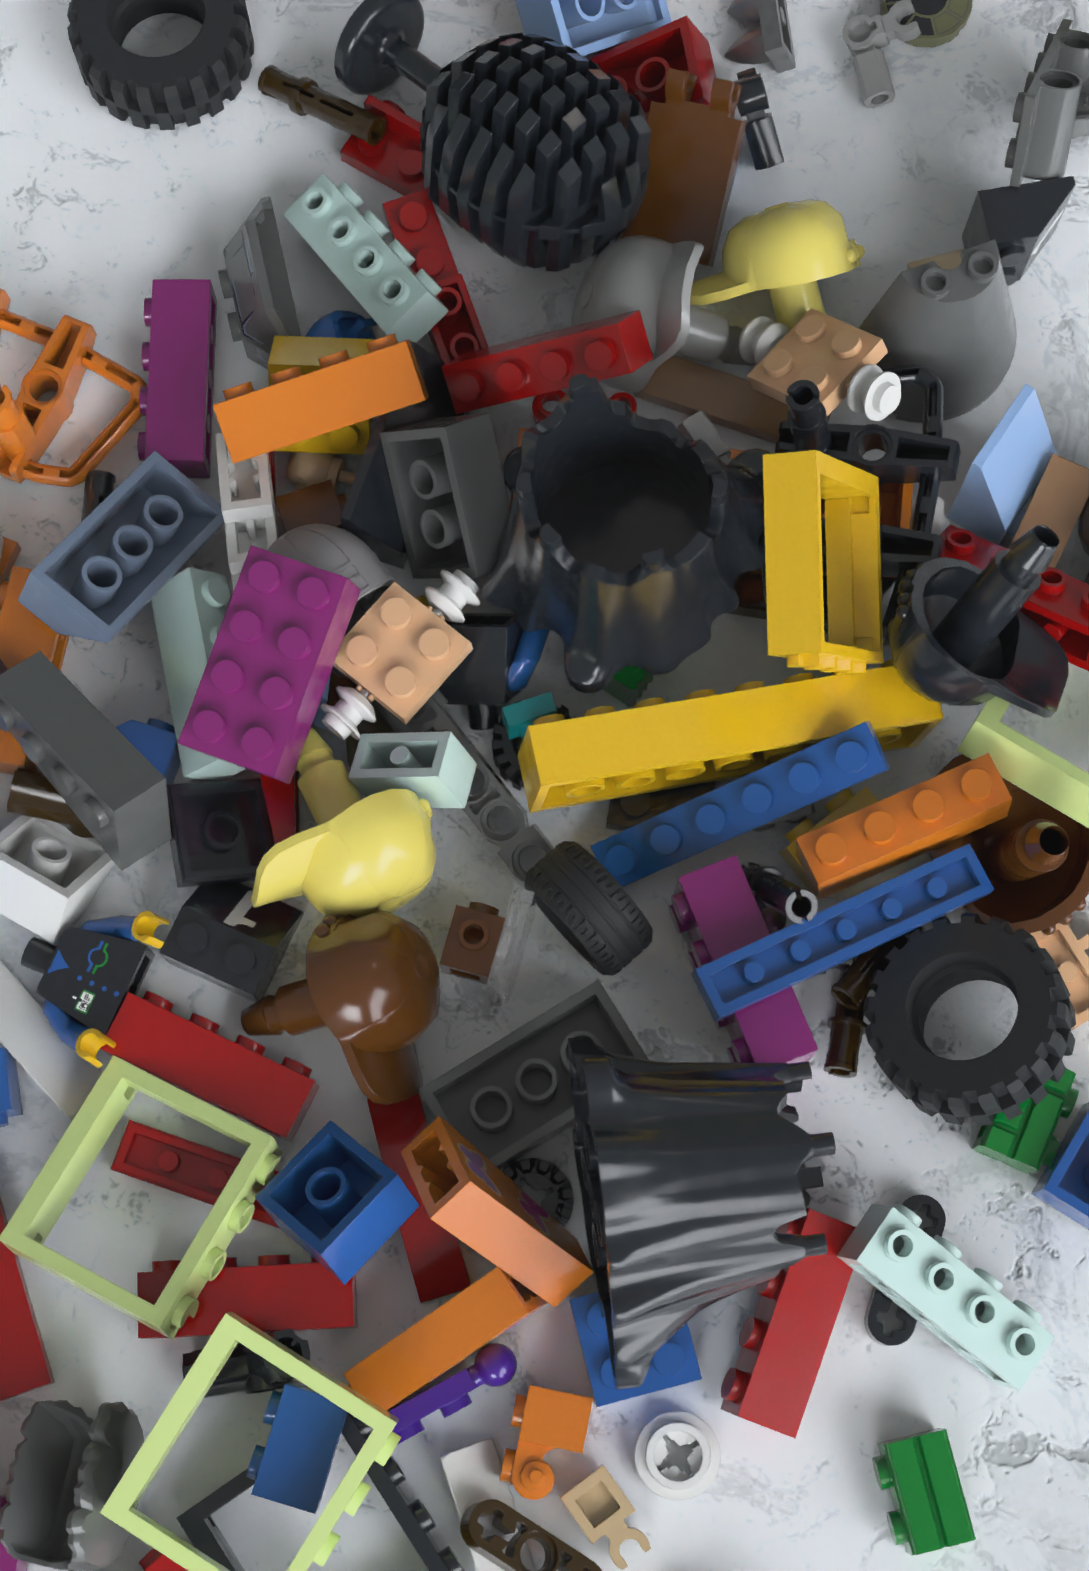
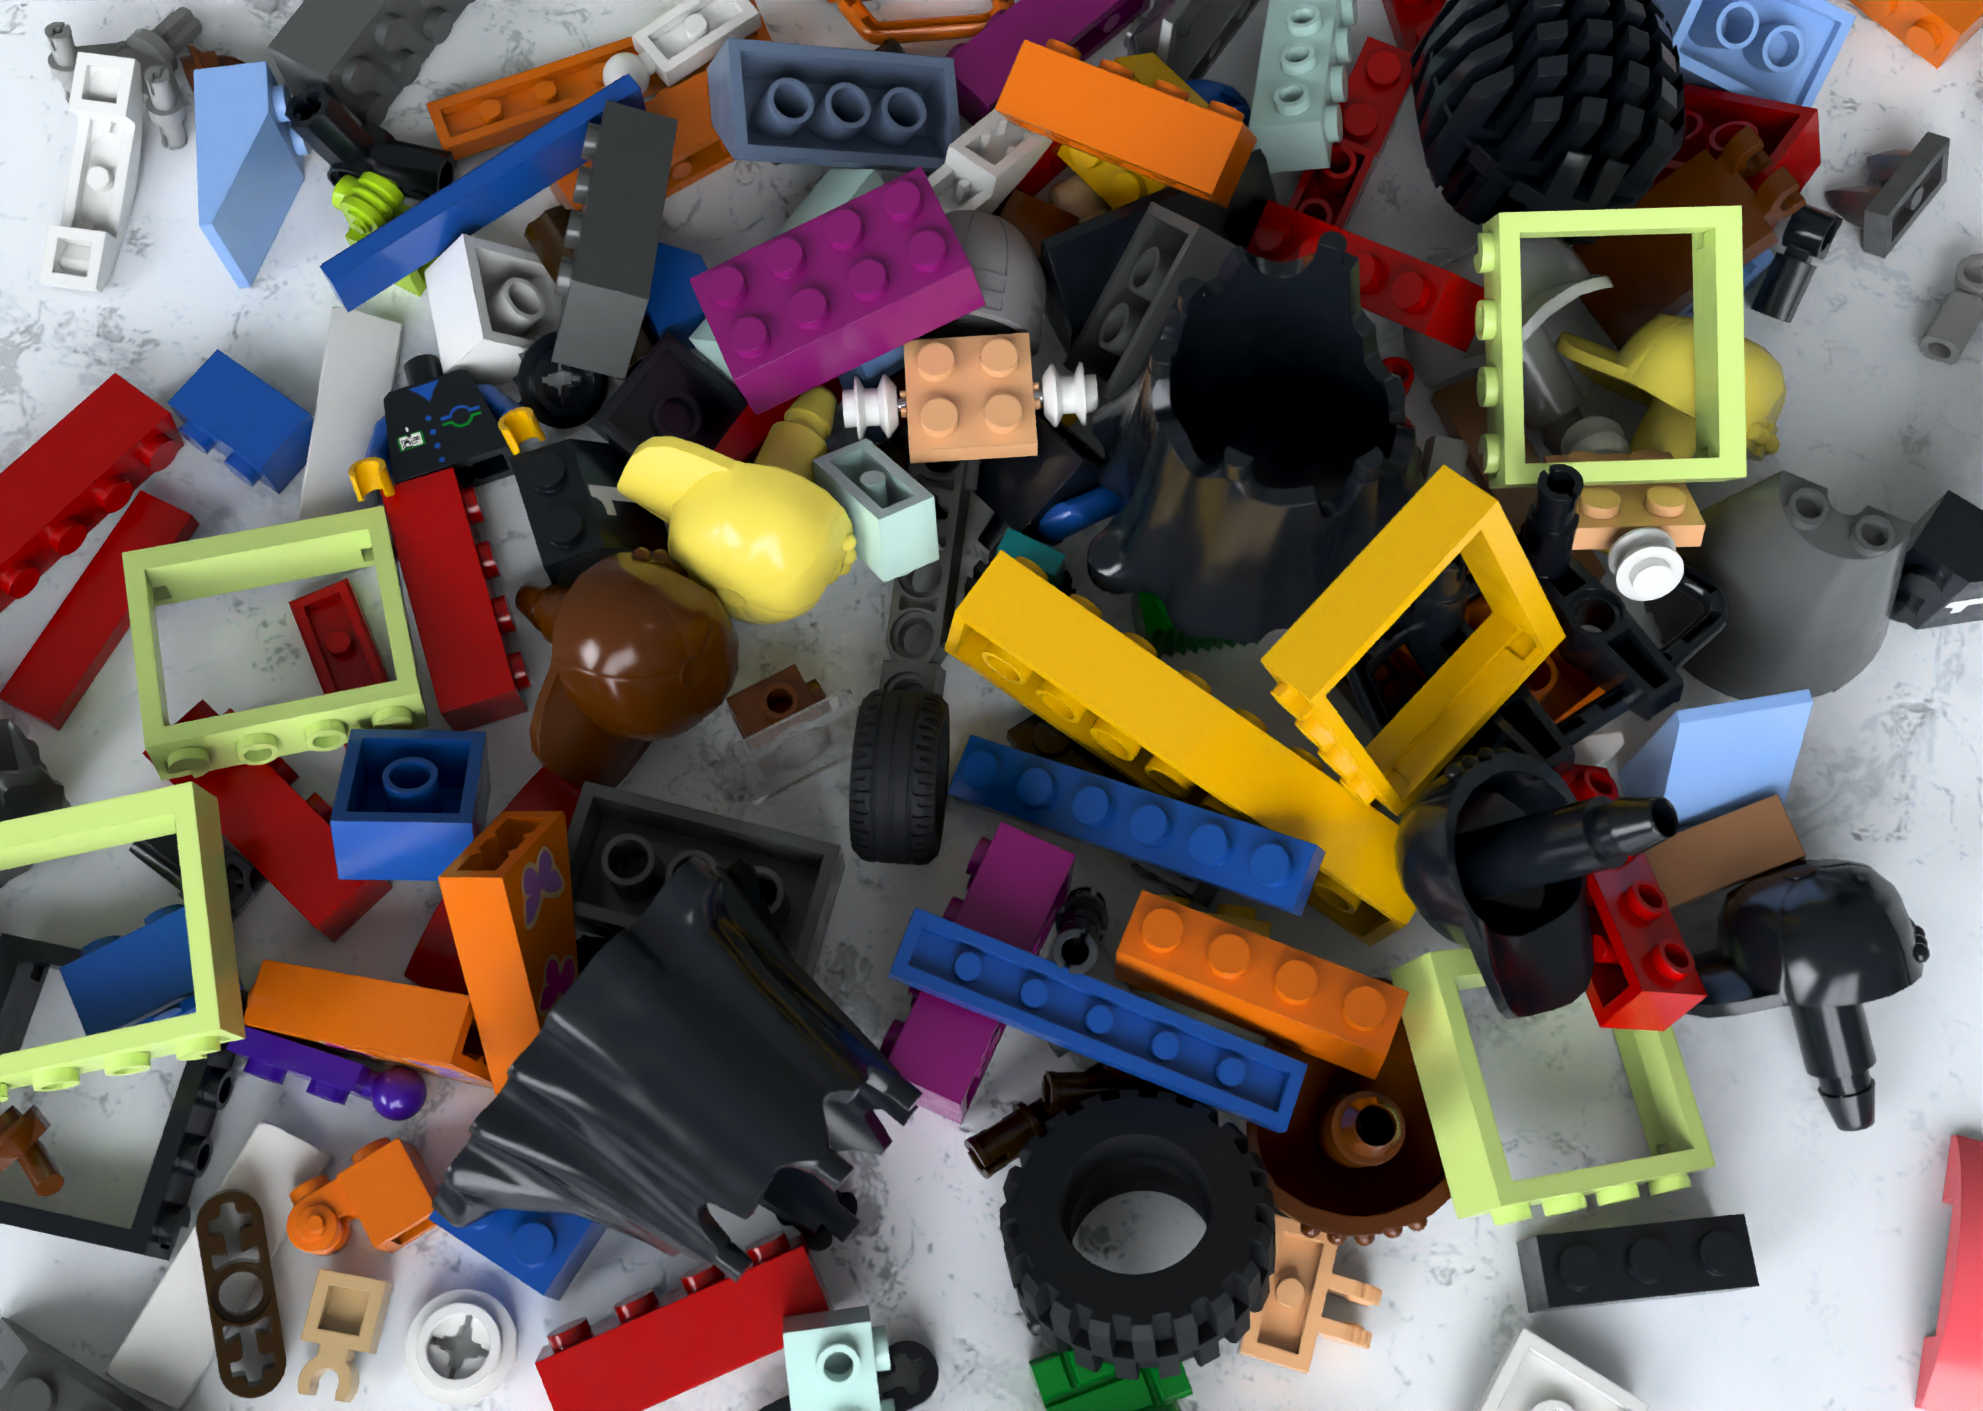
camera: 45 degrees right, 5 degrees down
(143, 888) = (577, 400): none -> black gear
(800, 234) = (1717, 342): none -> yellowish green window

